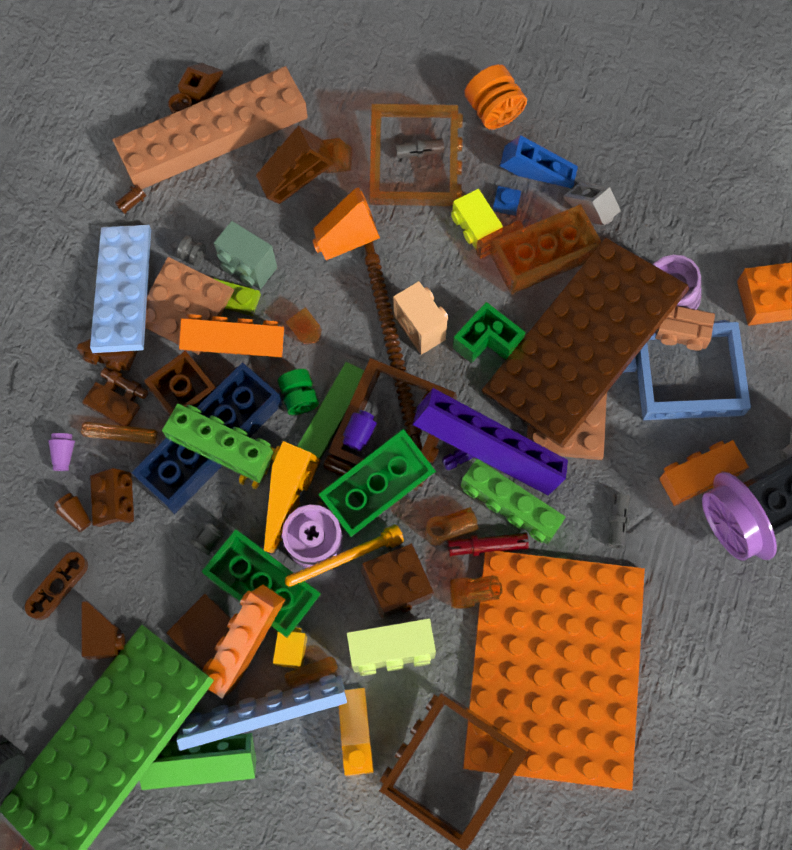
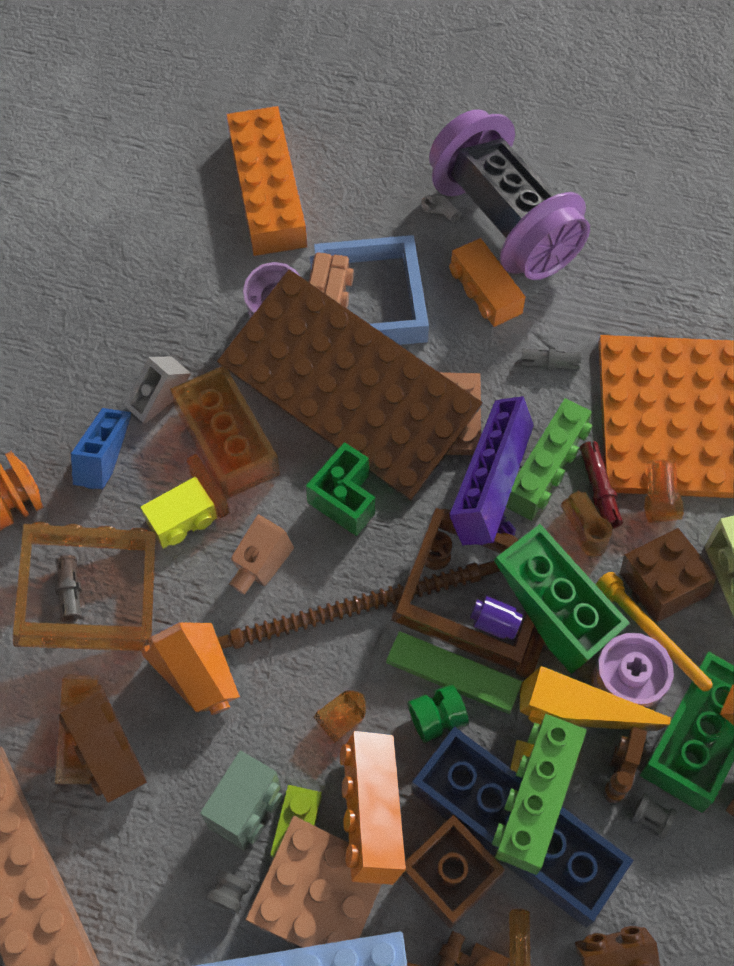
camera: 95 degrees left, 10 degrees down
(244, 518) = (625, 760): none -> reddish brown plate
(420, 317) = (327, 564): light nougat brick -> none
(436, 273) = (260, 554): none -> nougat torso
(506, 201) = (149, 483): blue plate -> none

